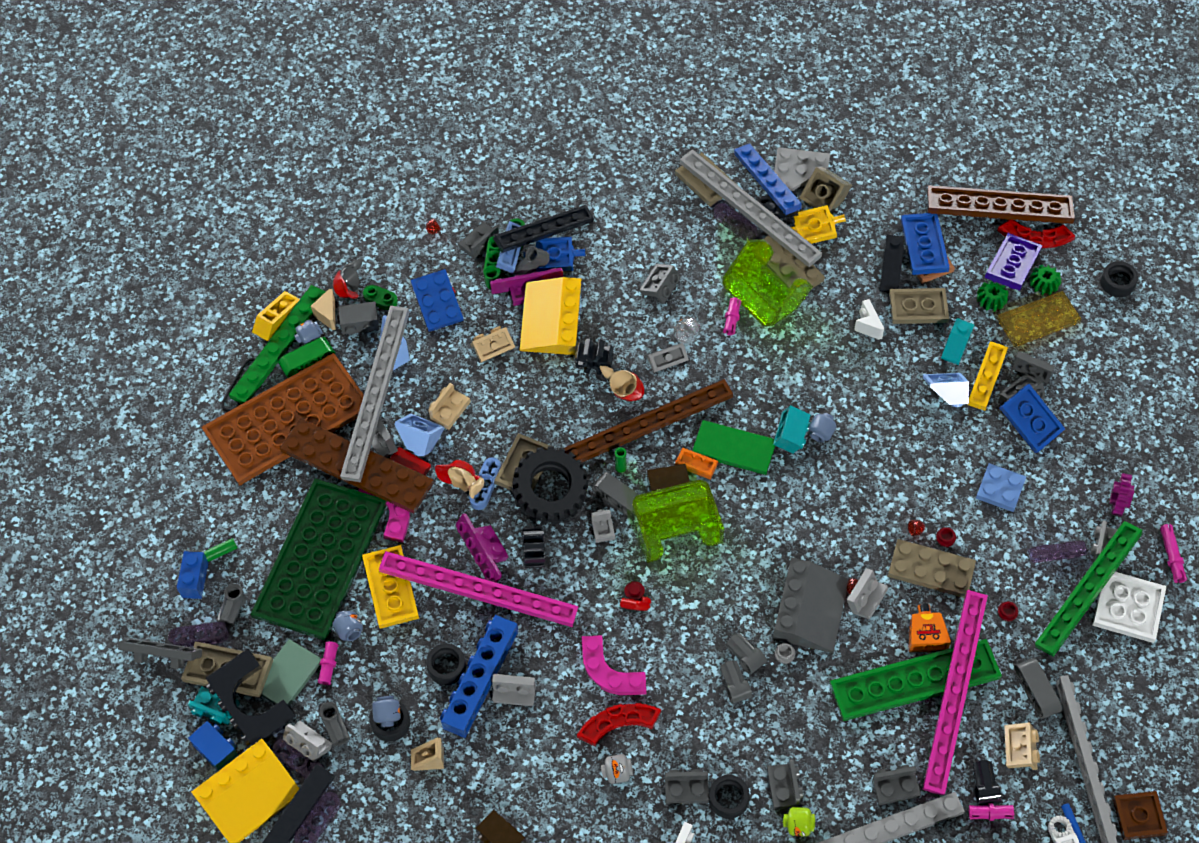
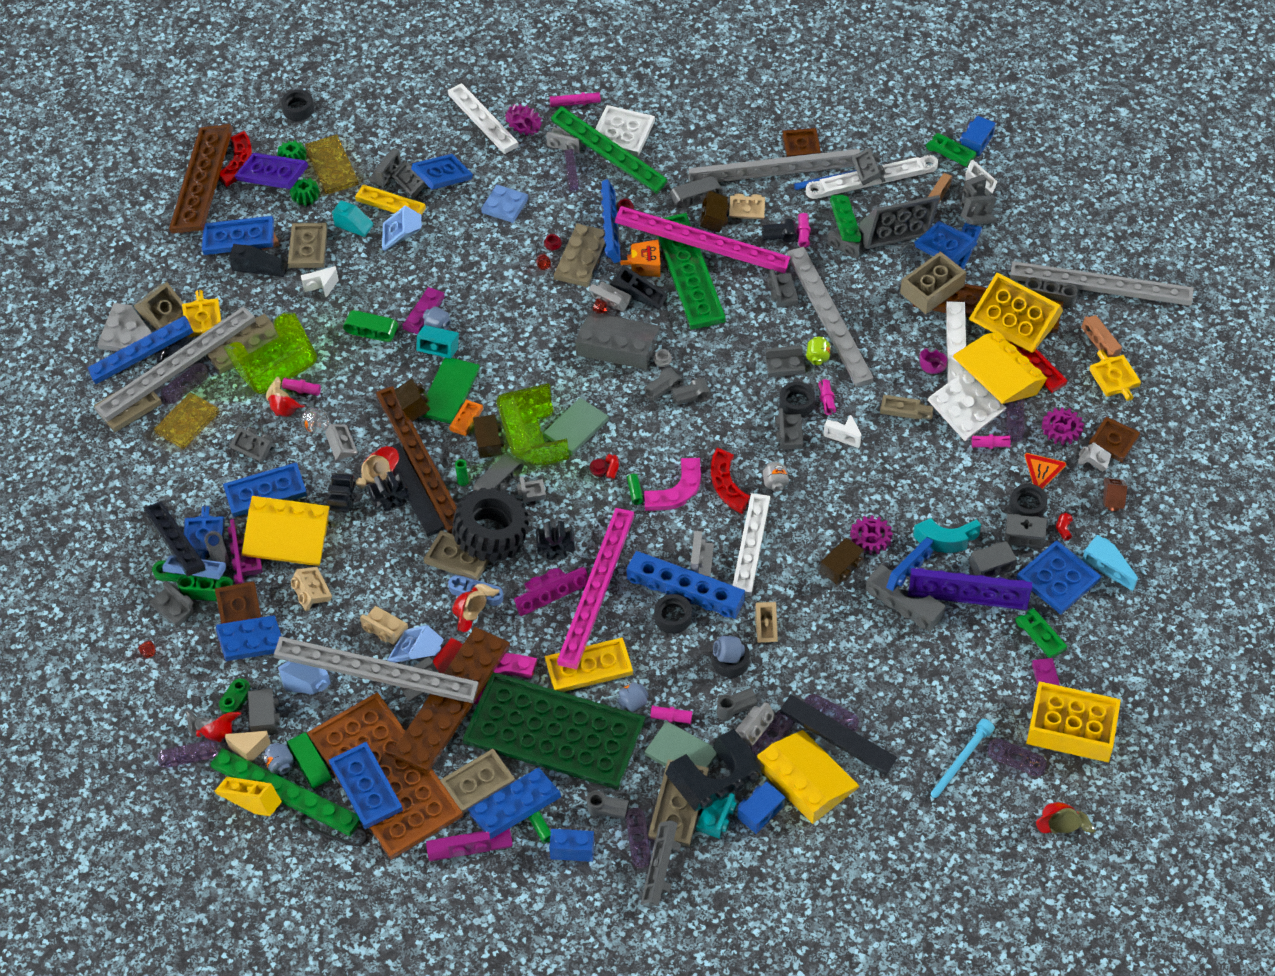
camera: 90 degrees left, 5 degrees down
(207, 491) = (467, 844): none -> magenta bracket
(244, 526) = (514, 803): none -> blue plate
(269, 400) = (365, 785): none -> blue plate
(271, 494) = (477, 780): none -> dark tan plate
(322, 267) = (187, 754): none -> clear purple beam
(472, 286) = (238, 602): none -> reddish brown tile
(531, 743) = (751, 542): none -> white plate
(595, 396) = (388, 491): none -> black gear
(606, 298) = (278, 483): none -> blue plate
(606, 627) = (635, 489): none -> green hinge
(607, 420) = (418, 497): none -> black tile
(689, 568) = (577, 425): none -> sand green tile
(690, 228) = (186, 420): none -> clear yellow tile
(710, 409) = (412, 399): none -> dark brown brick
(711, 300) = (280, 401): none -> red hair
(734, 831) = (827, 397): none -> dark pink pin
(812, 369) = (370, 326): none -> green beam
(844, 419) = (429, 299): none -> magenta plate
(881, 625) = (638, 288): none -> black slope
(997, 591) = (610, 227): none -> blue plate
(1004, 705) = (714, 212): none -> dark brown brick
(1126, 458) = (483, 118): none -> white plate

